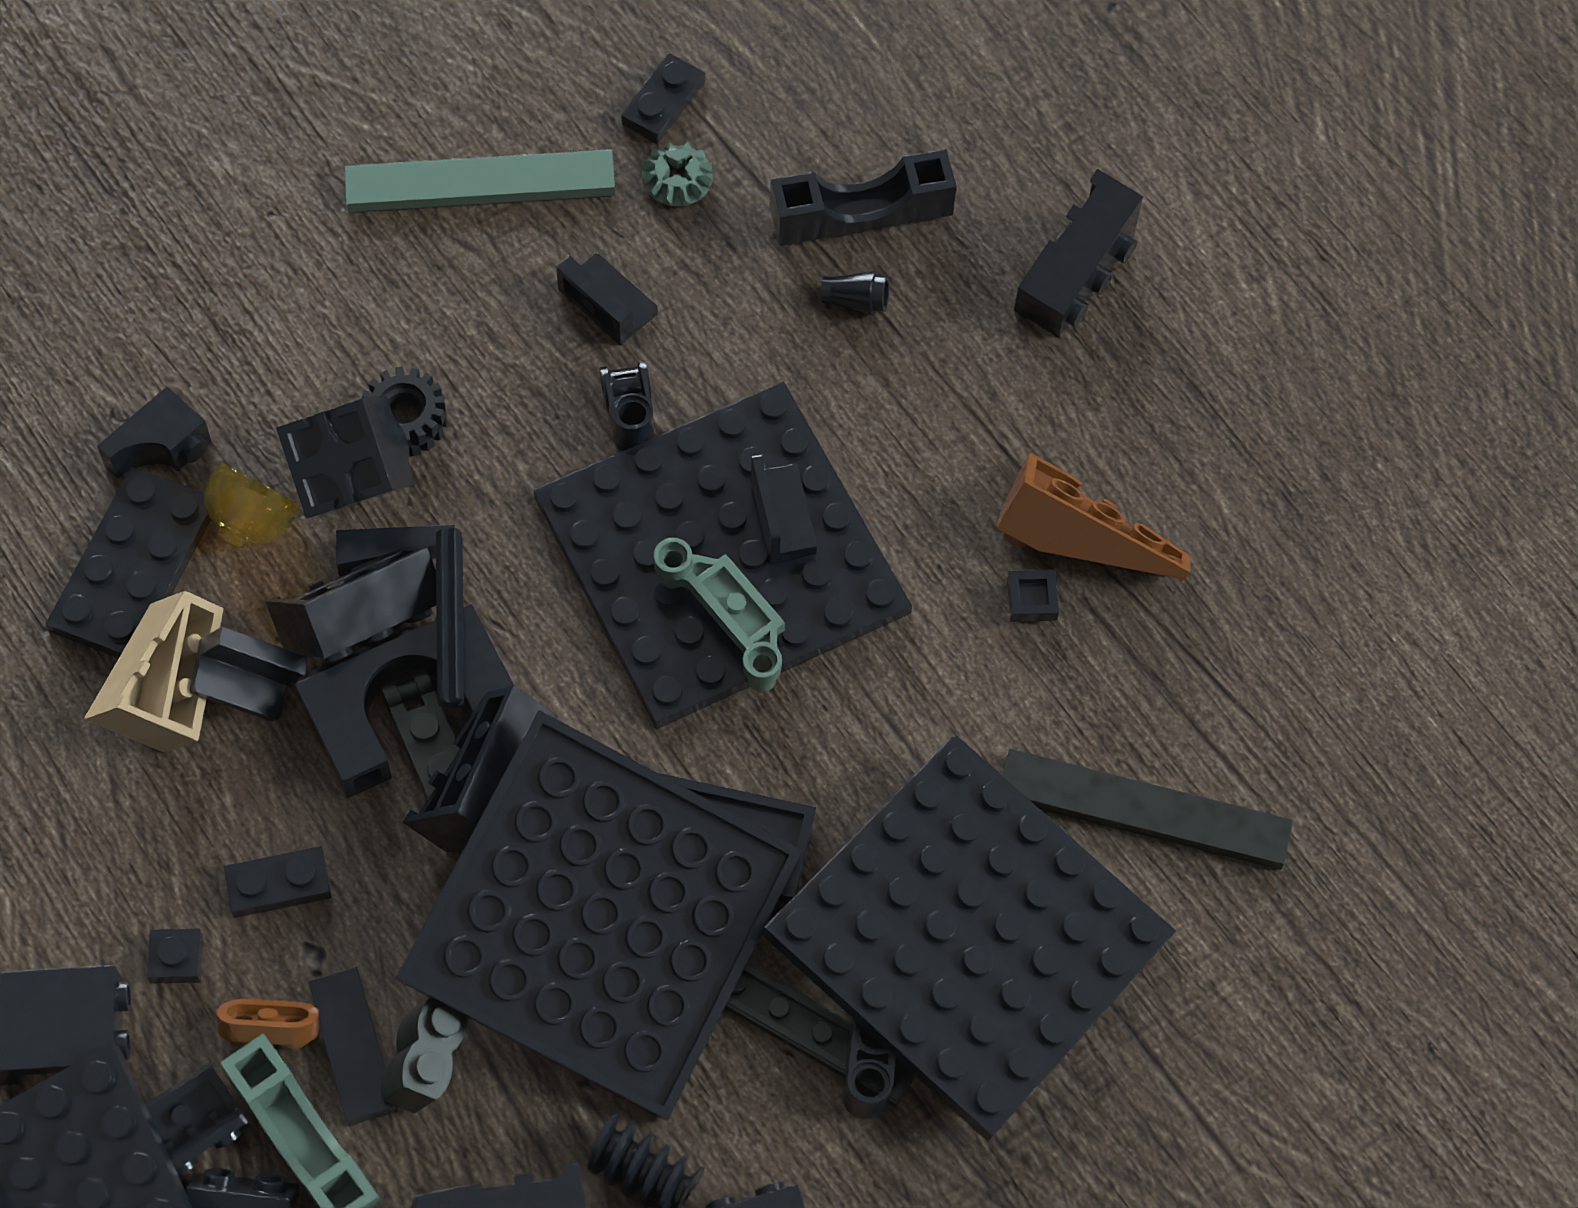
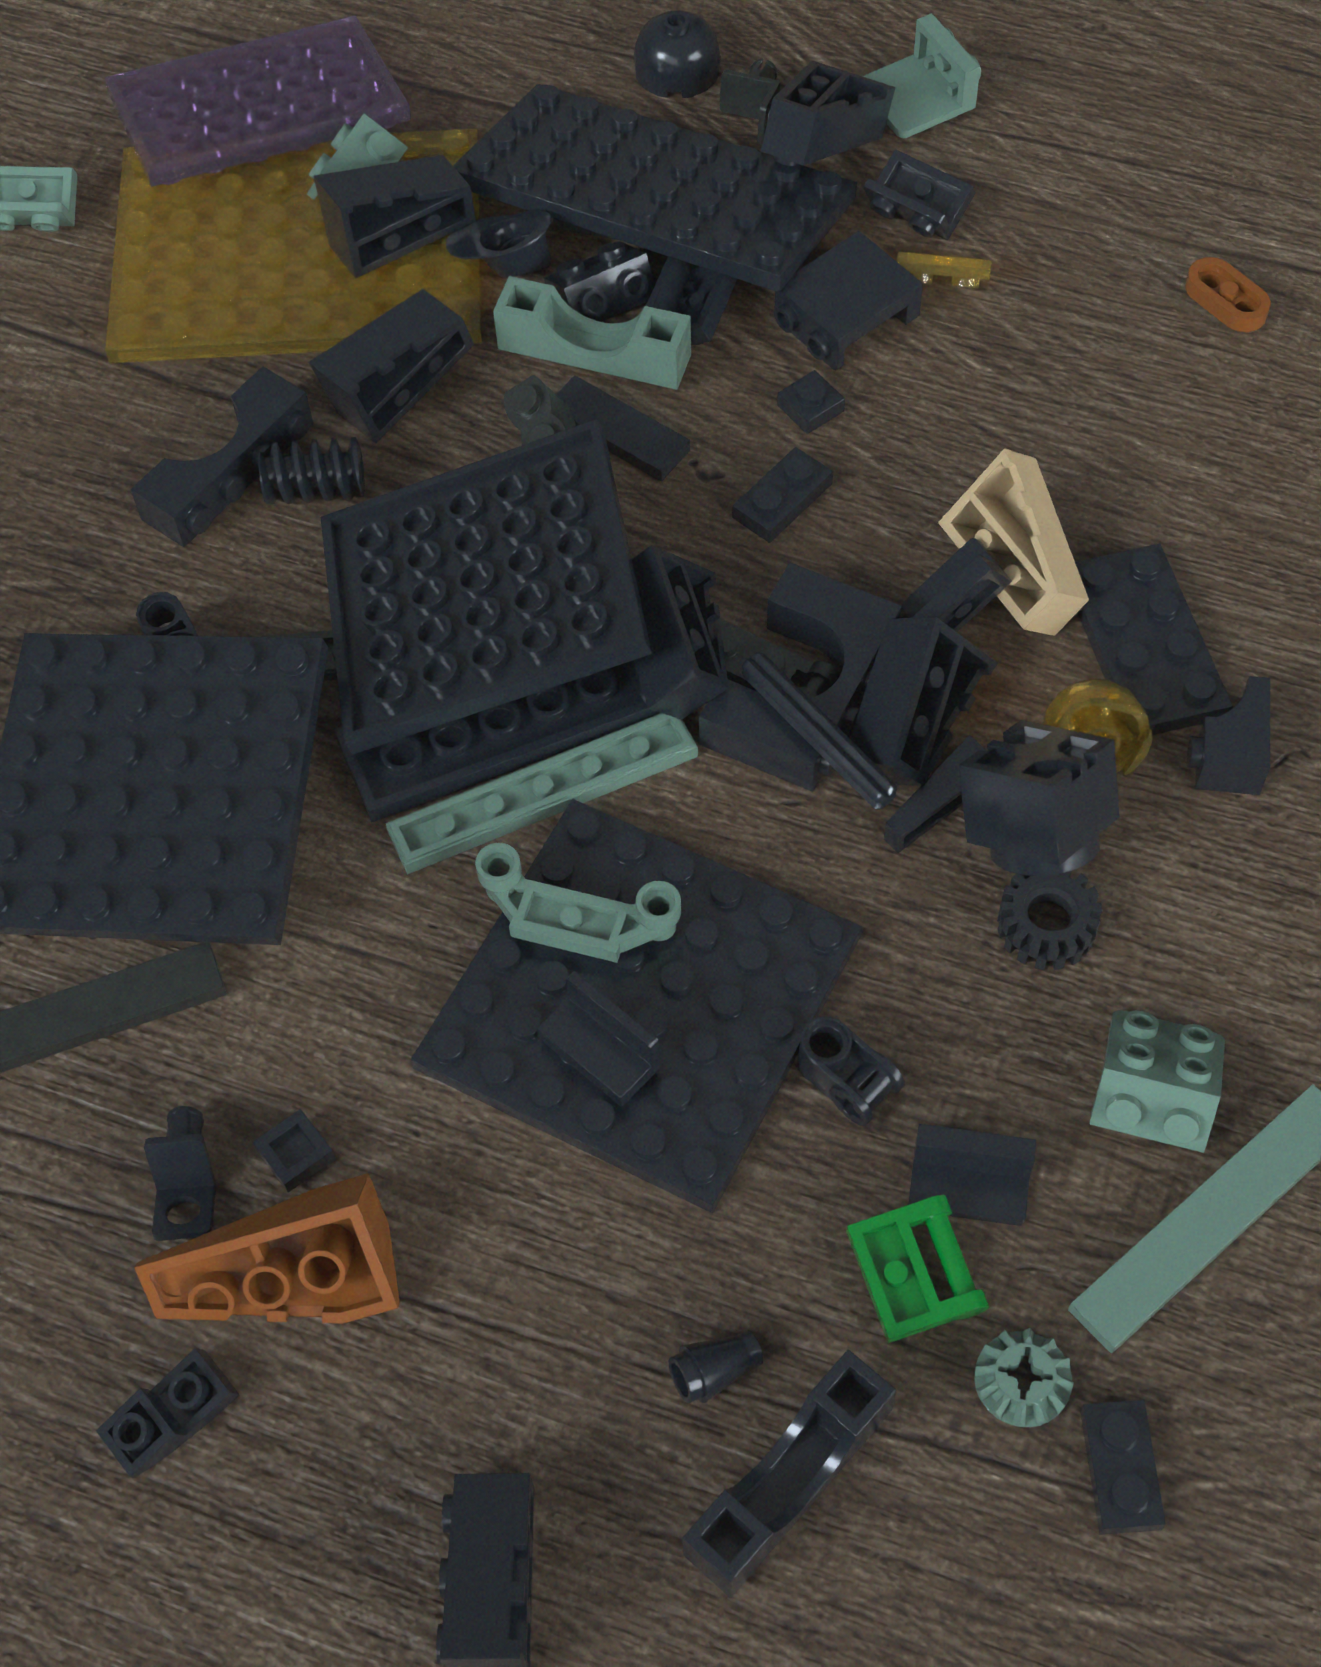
camera: 150 degrees right, 5 degrees down
(282, 1022) = (690, 393): dark orange plate -> none
(431, 268) = (1160, 1080): none -> sand green bracket
(700, 756) = (540, 791): none -> sand green tile
(702, 269) = (898, 1274): none -> green plate
(1116, 630) = (181, 1175): none -> black bracket
(1223, 490) = (168, 1415): none -> black slope

